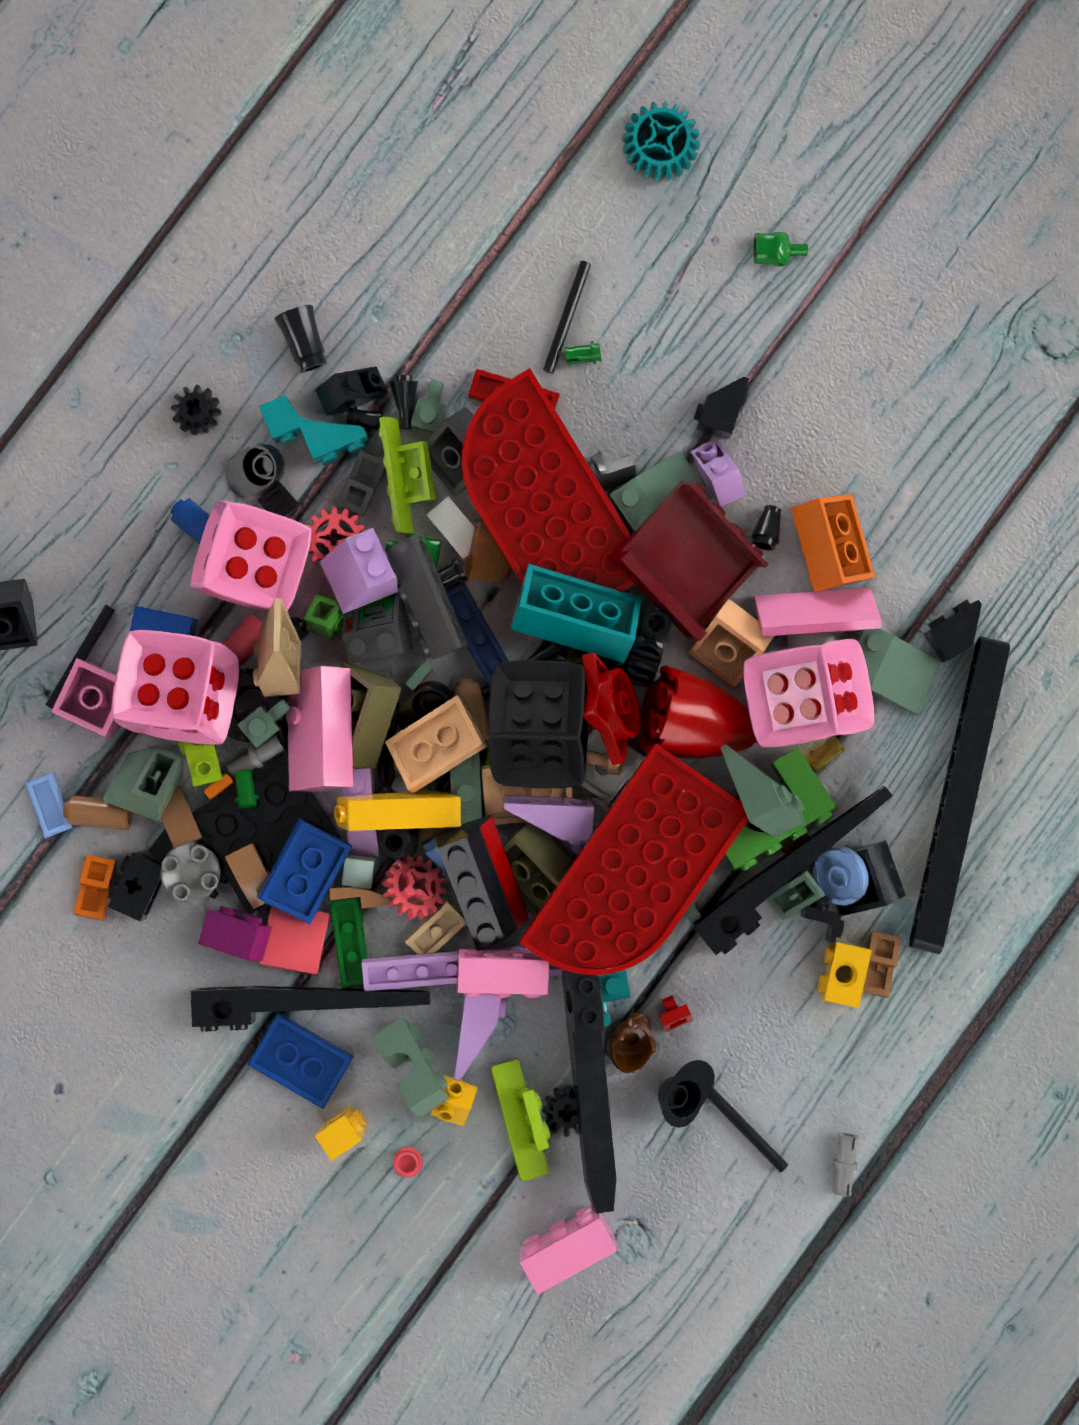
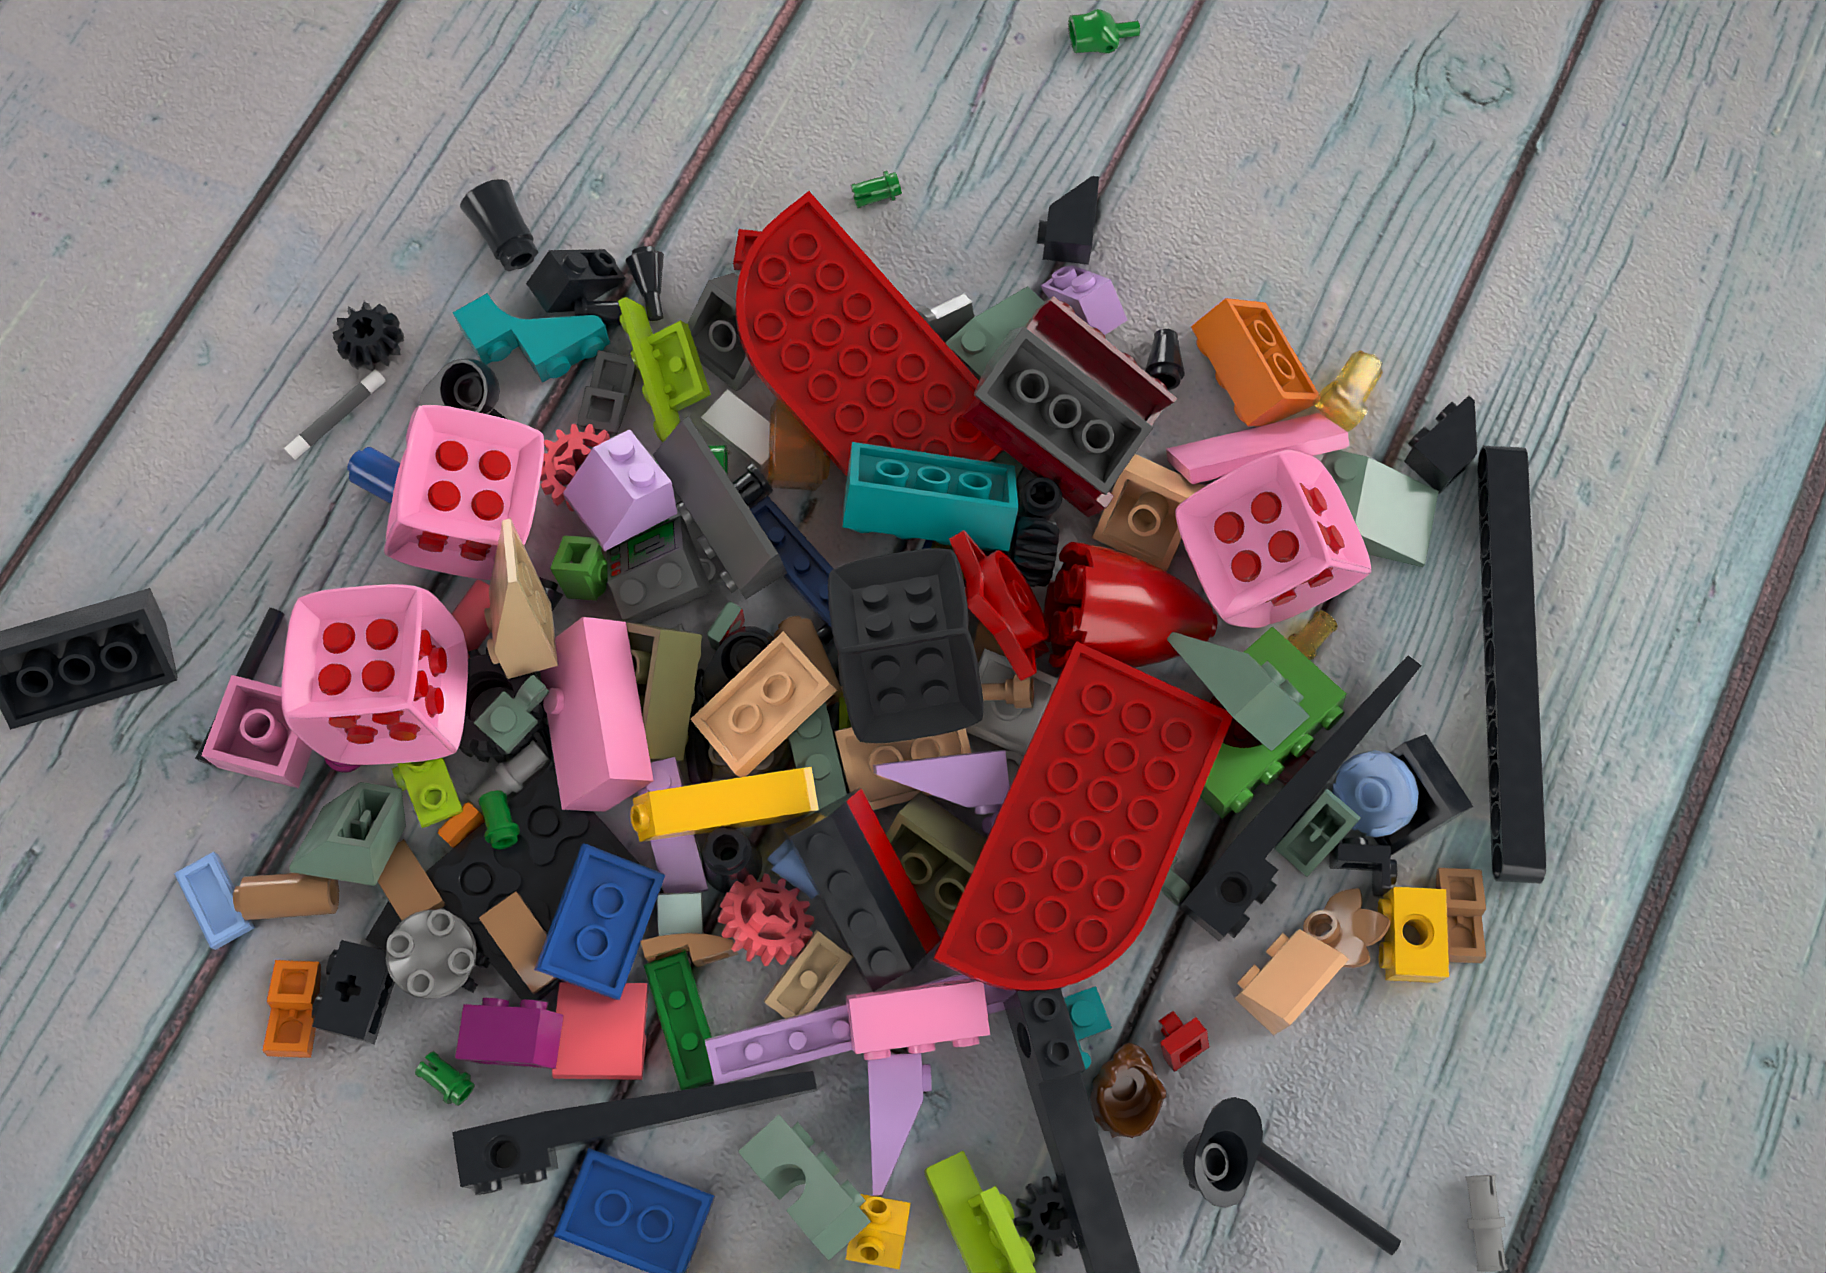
camera: 10 degrees left, 15 degrees down
(166, 464) = (335, 414): none -> dark grey bar
(191, 953) = (445, 1079): none -> green pin
(429, 412) = (684, 289): sand green plate -> none
(567, 316) = (847, 151): black bar -> none
(679, 570) = (1061, 409): none -> dark grey slope
(753, 990) = (1289, 980): none -> light nougat slope
(803, 962) = (1349, 926): none -> medium nougat plate
(889, 583) = (1345, 397): none -> clear yellow piece

